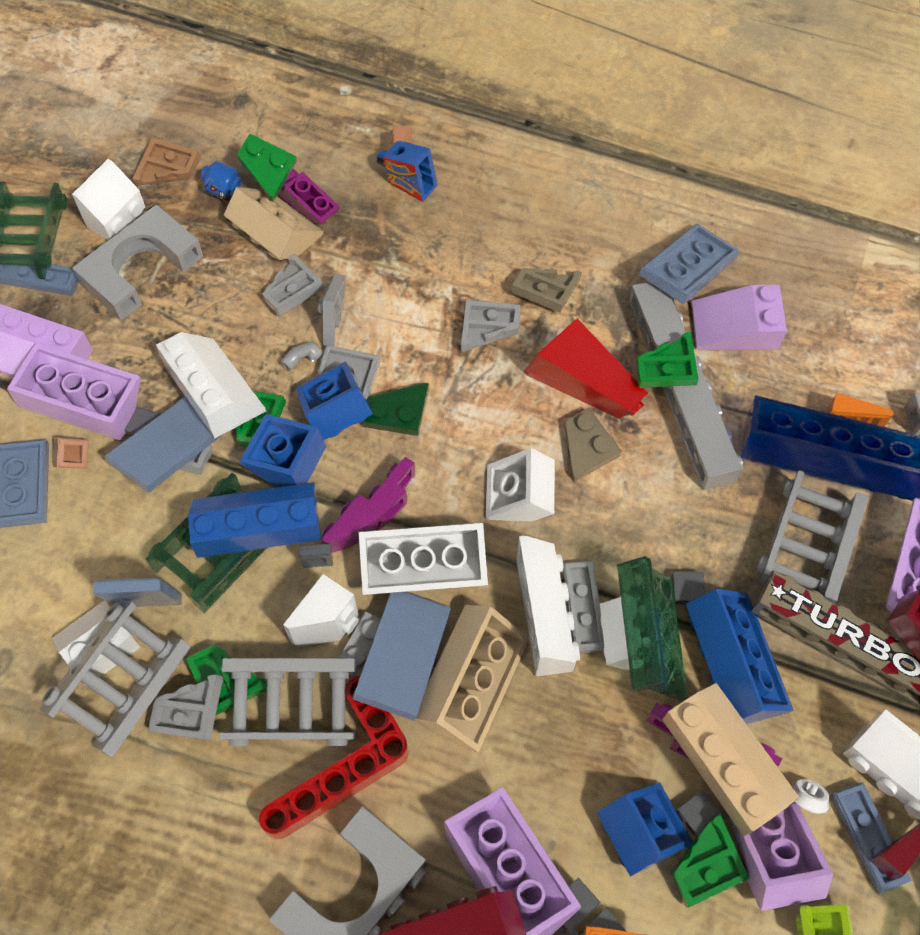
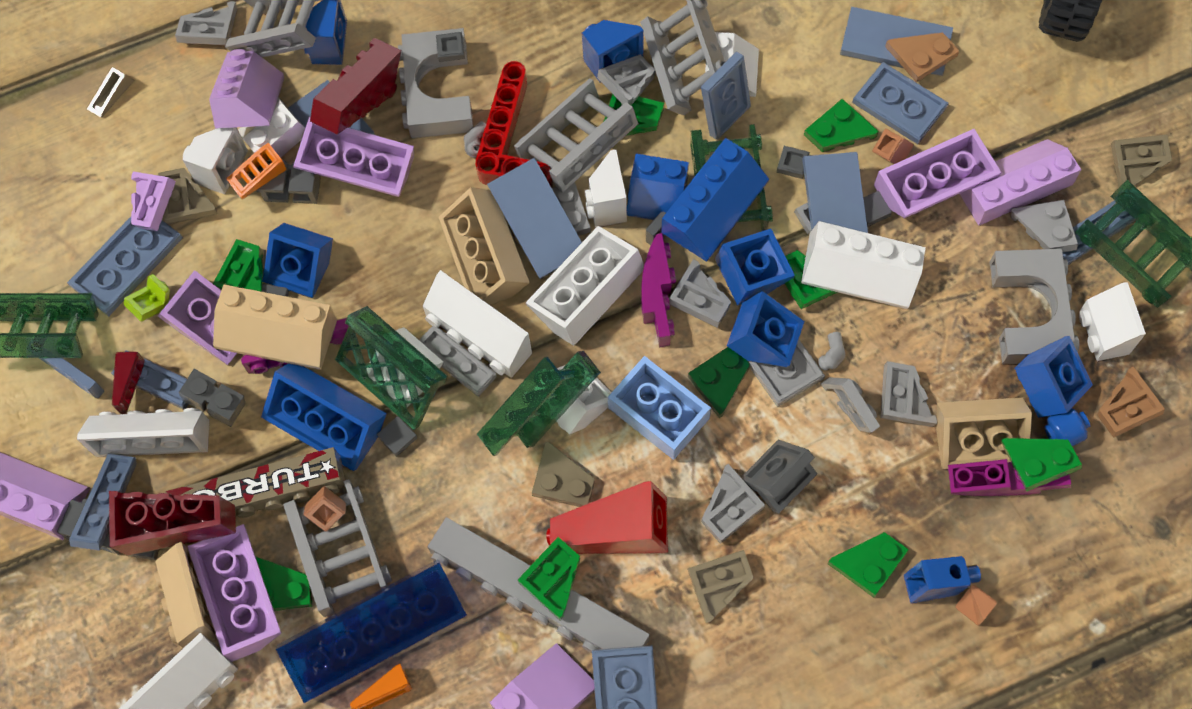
camera: 140 degrees right, 5 degrees up
(54, 295) = (1048, 225): none -> light grey wing
(84, 508) = (839, 127): none -> green wing
(151, 515) = (791, 162): none -> dark grey tile
(170, 751) = (610, 43): none -> blue slope
(192, 203) = (1054, 377): none -> blue slope
(274, 587) = (655, 185): none -> blue slope
(303, 906) = (450, 46): none -> dark grey tile
(344, 476) = (700, 296): none -> light grey wing
(377, 797) = (472, 139): none -> light grey arm
(434, 307) = (780, 474): none -> dark grey bracket
(435, 220) = (870, 562): none -> green wing
(469, 418) = (659, 407): none -> light blue brick
(558, 485) = (538, 402): none -> clear green fence
(804, 565) = (325, 508): none -> nougat slope
(811, 796) = (210, 362): white hat -> none
(841, 766) = (223, 401): none -> dark grey piece
(878, 554) = (285, 586): none -> green wing

